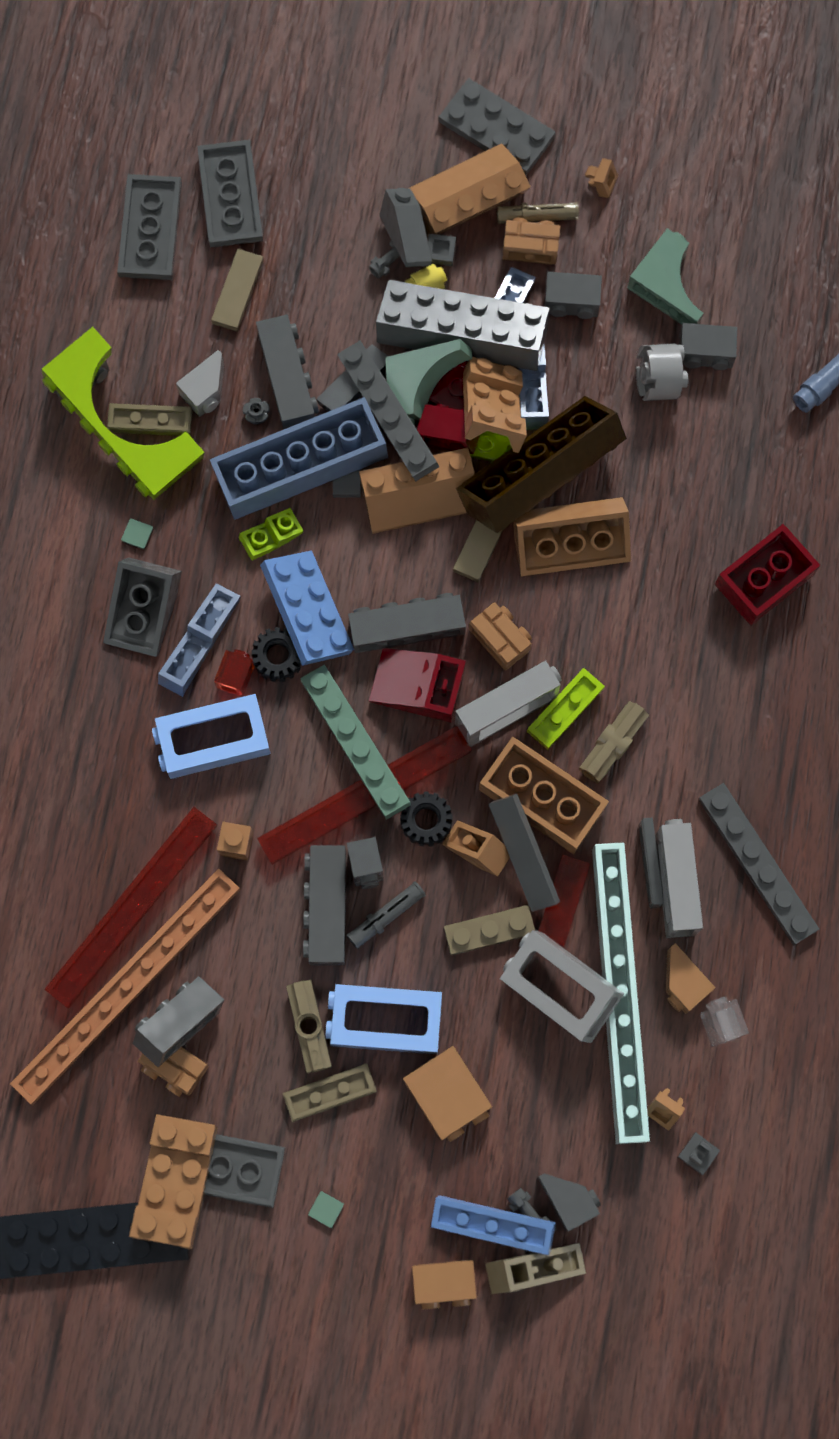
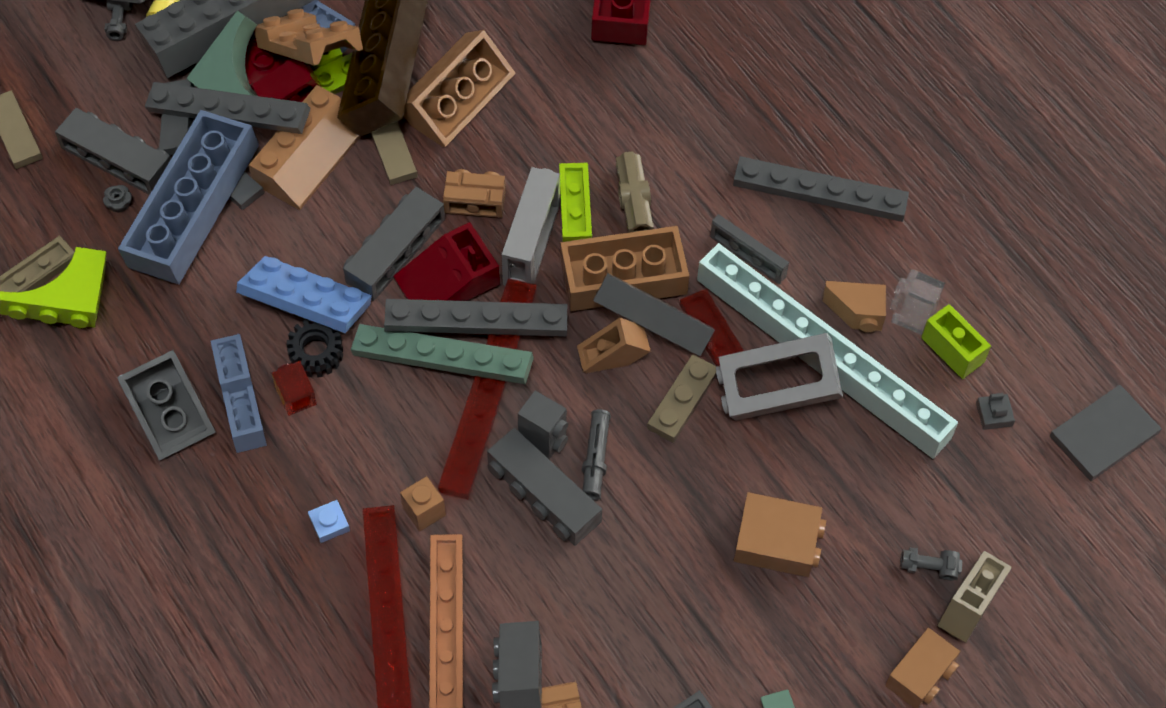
camera: 45 degrees left, 15 degrees down
(137, 533) = (106, 360): sand green piece -> none
(168, 792) = (328, 521): none -> light blue plate
(203, 385) = (54, 212): light grey slope -> none
(216, 756) = (318, 490): light blue piece -> none
(271, 535) = (220, 271): lime slope -> none
(312, 1045) = (641, 593): dark tan piece -> none
(329, 1092) = (689, 620): dark tan tile -> none
(383, 1041) = (659, 566): light blue piece -> none
(402, 737) = (475, 317): none -> dark grey plate
(433, 835) = (558, 347): black tyre -> none
(493, 1225) = (913, 590): medium blue plate -> none
(570, 1201) = (945, 525): dark grey slope -> none
(665, 1110) = (944, 397): medium nougat tile -> none
(678, 879) = (786, 234): light grey piece -> none
(721, 1077) = (955, 341): none -> lime brick
(761, 1246) = (1105, 432): none -> dark grey tile

